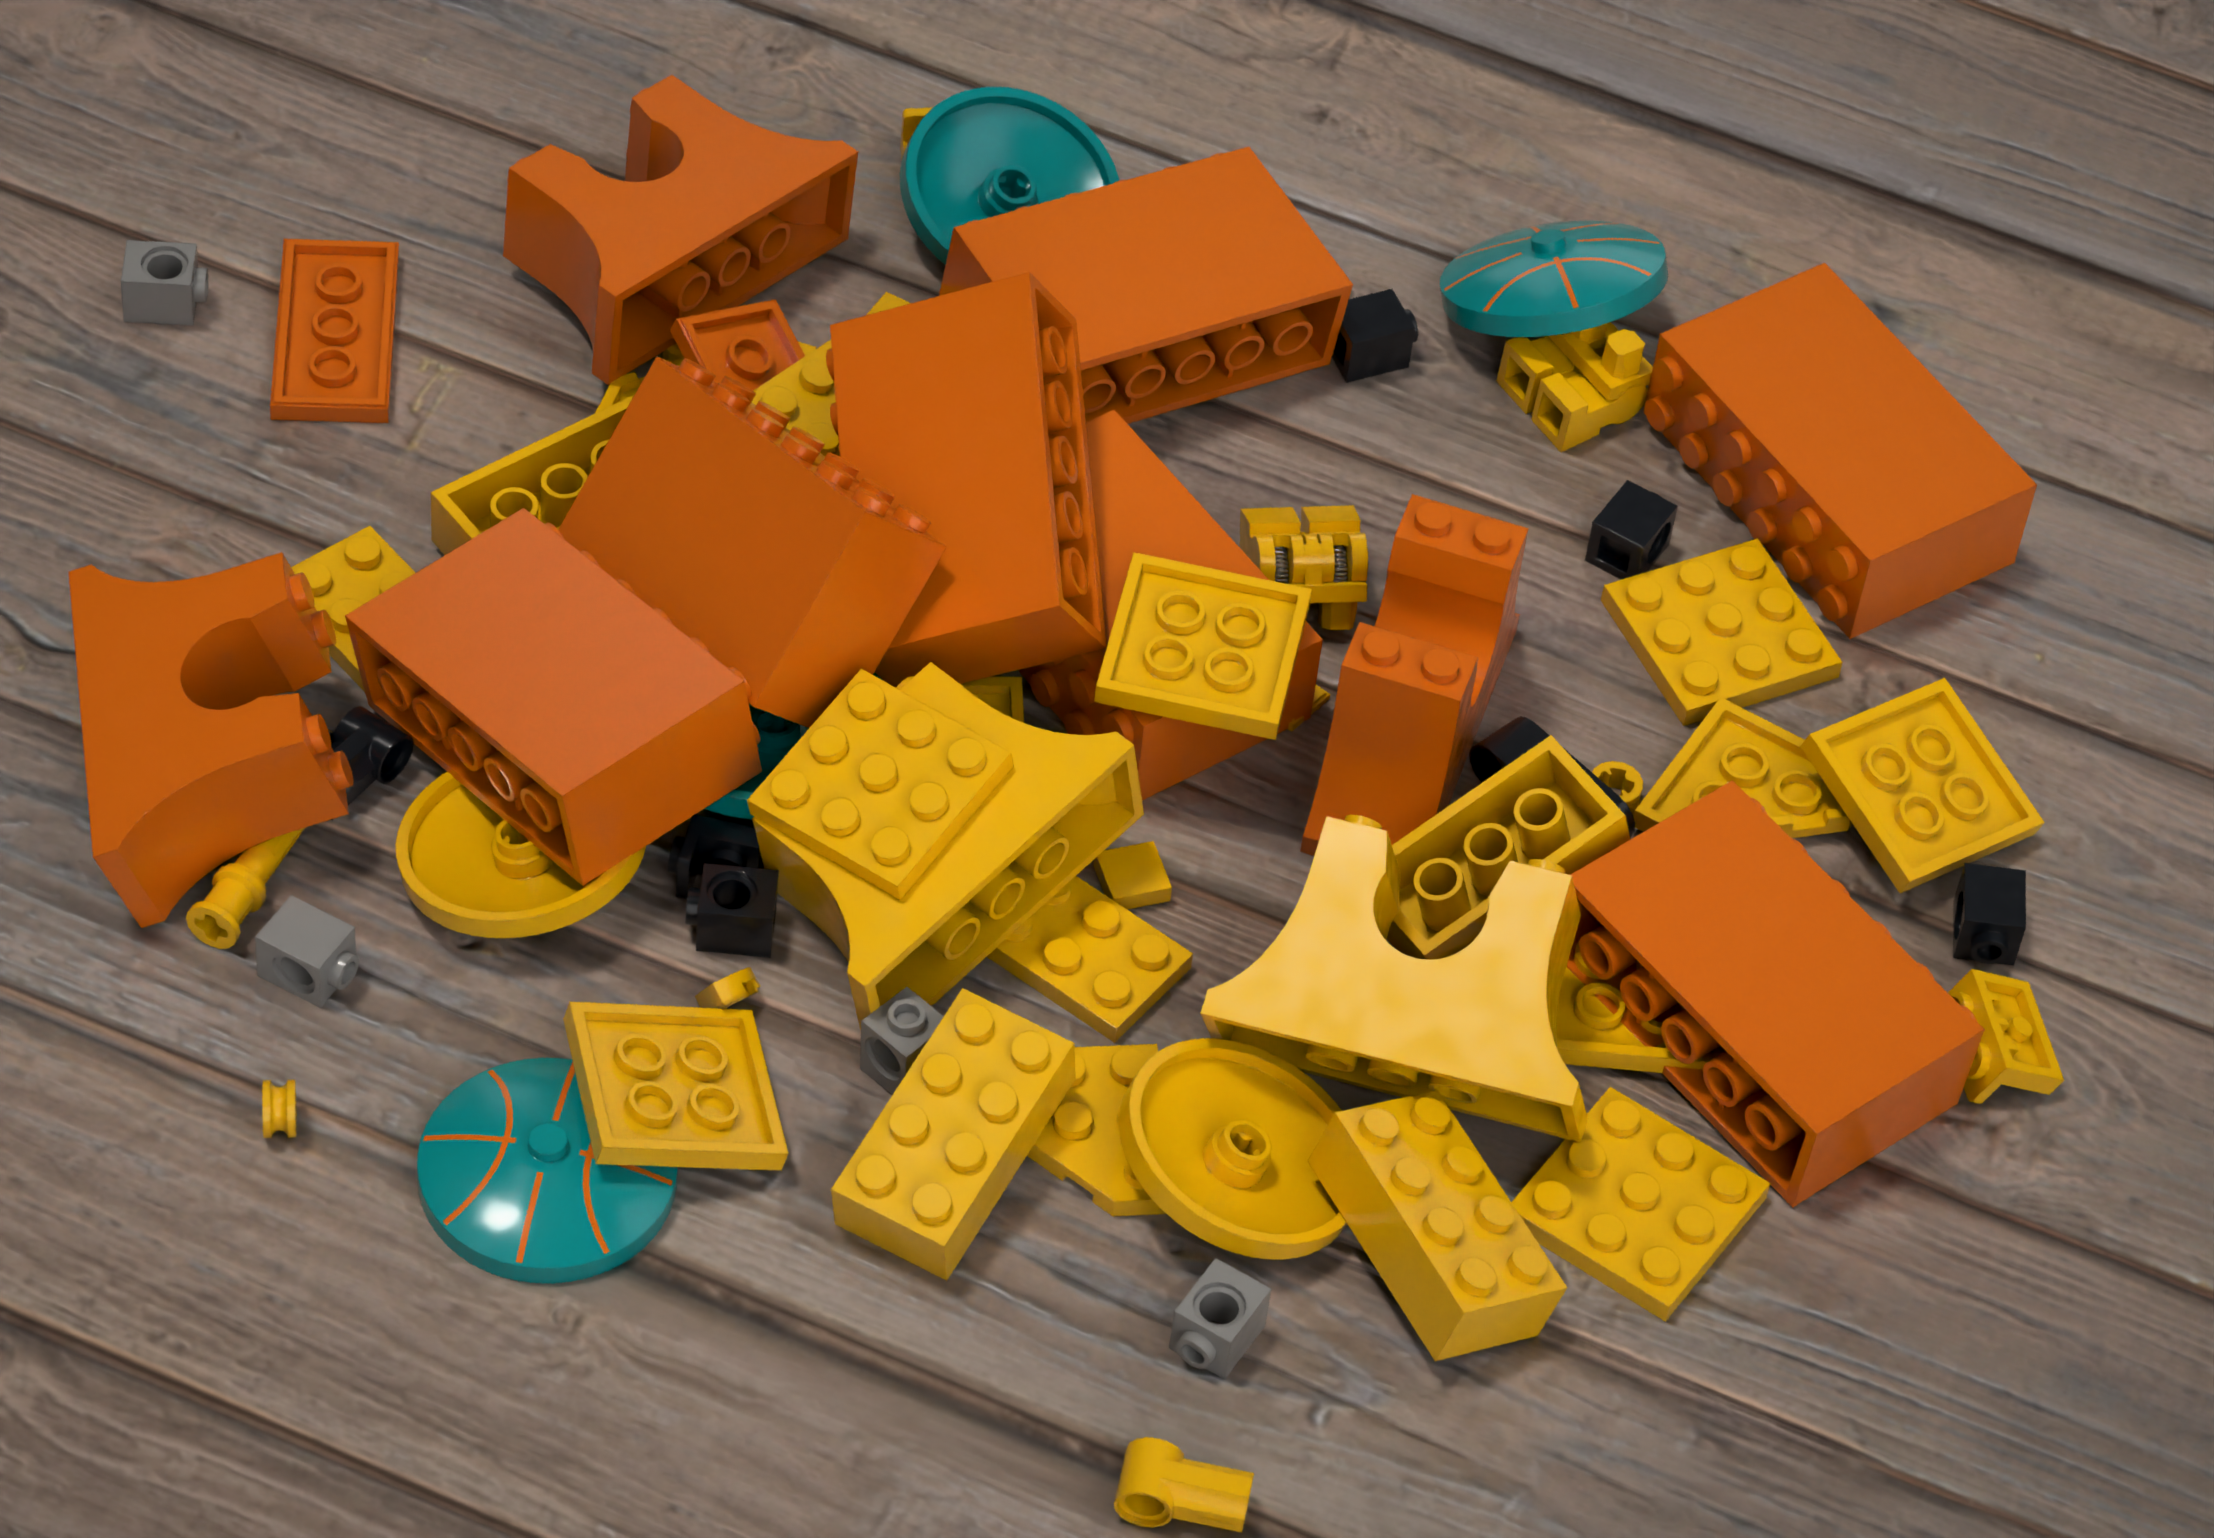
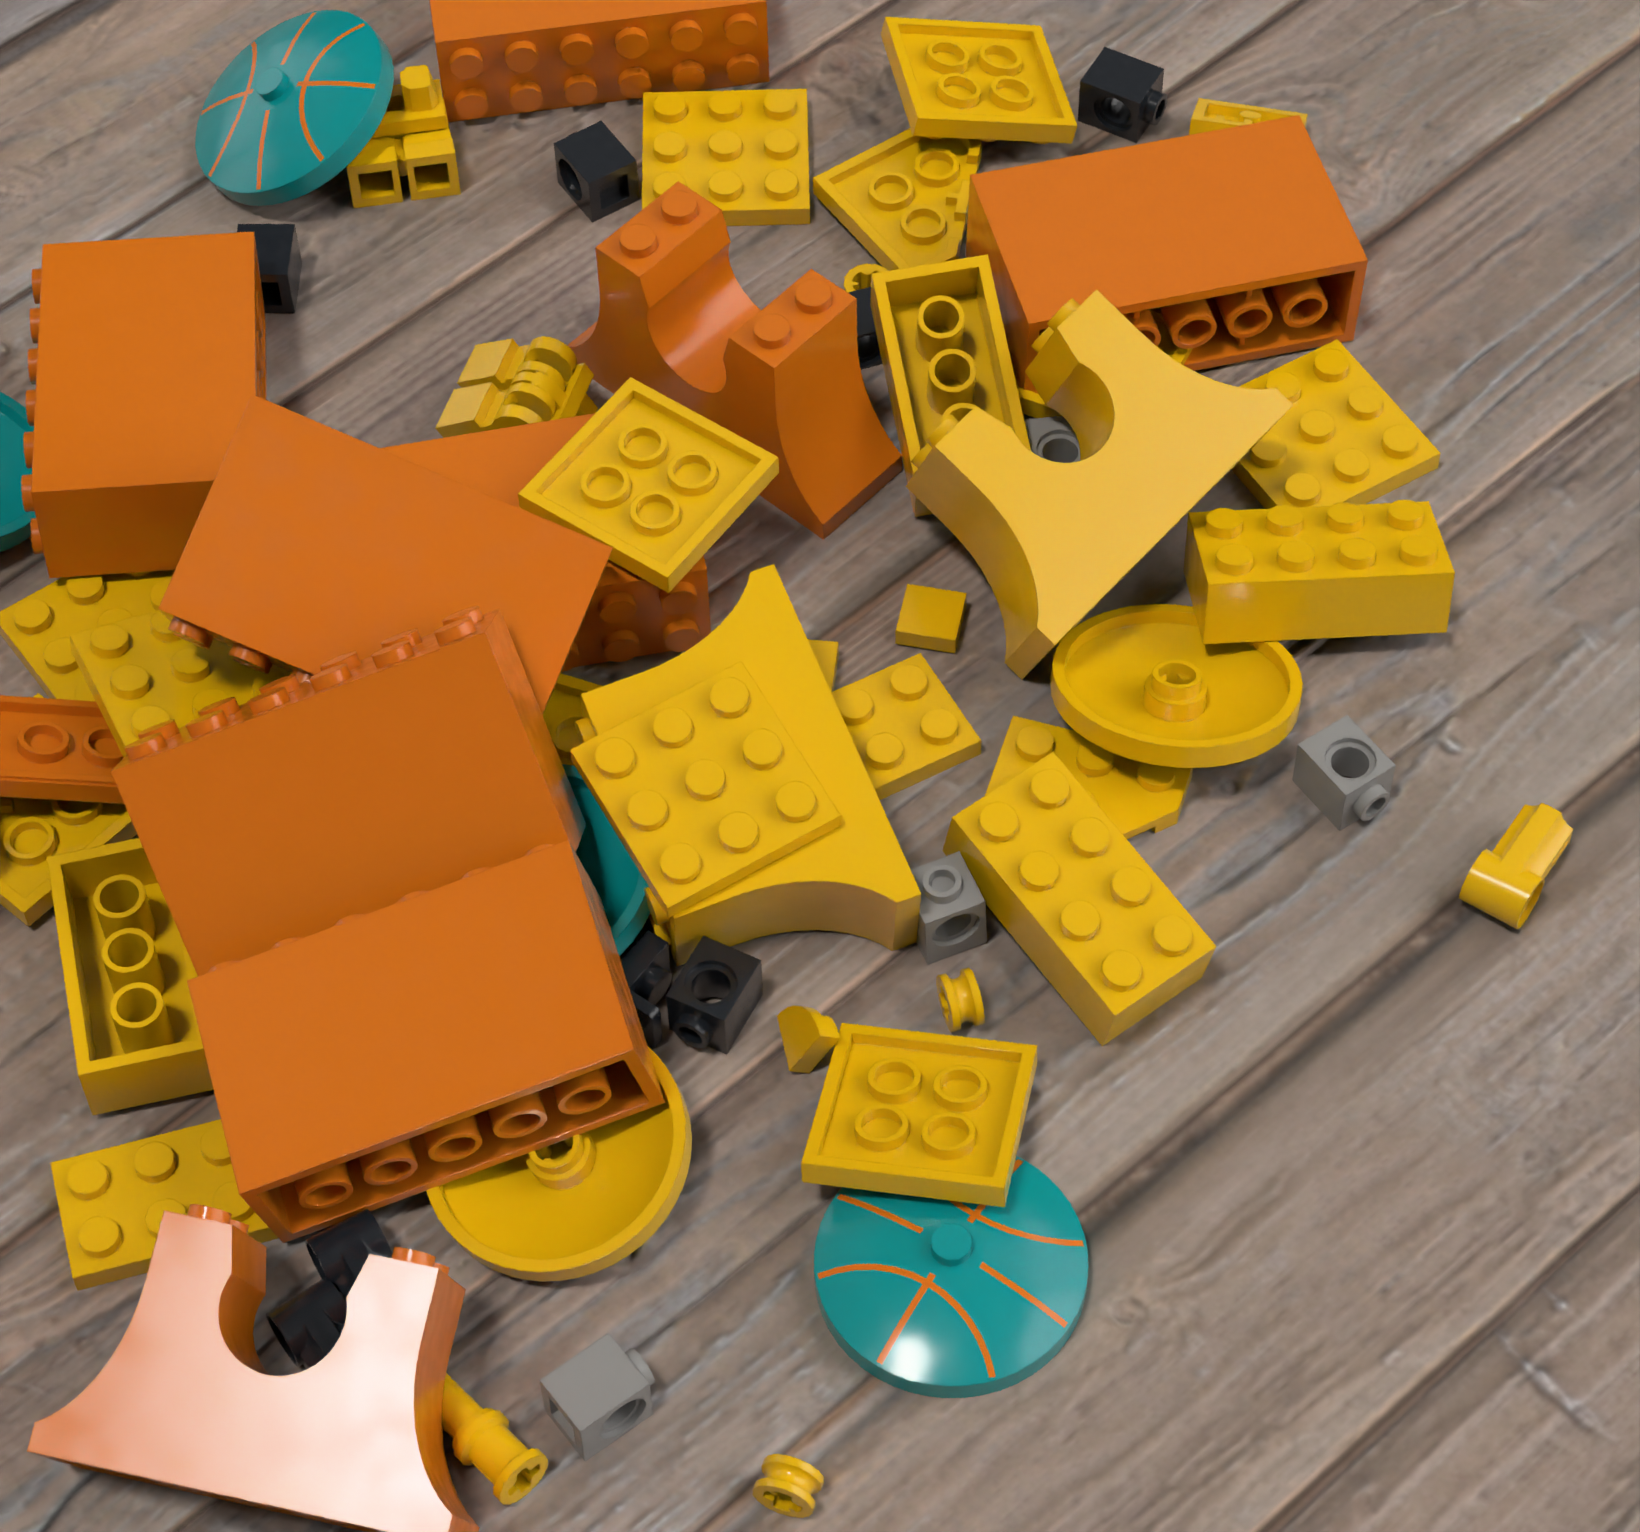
camera: 60 degrees left, 5 degrees up
(818, 1091) = (960, 999): none -> yellow bush
(1236, 947) = (931, 618): none -> yellow tile

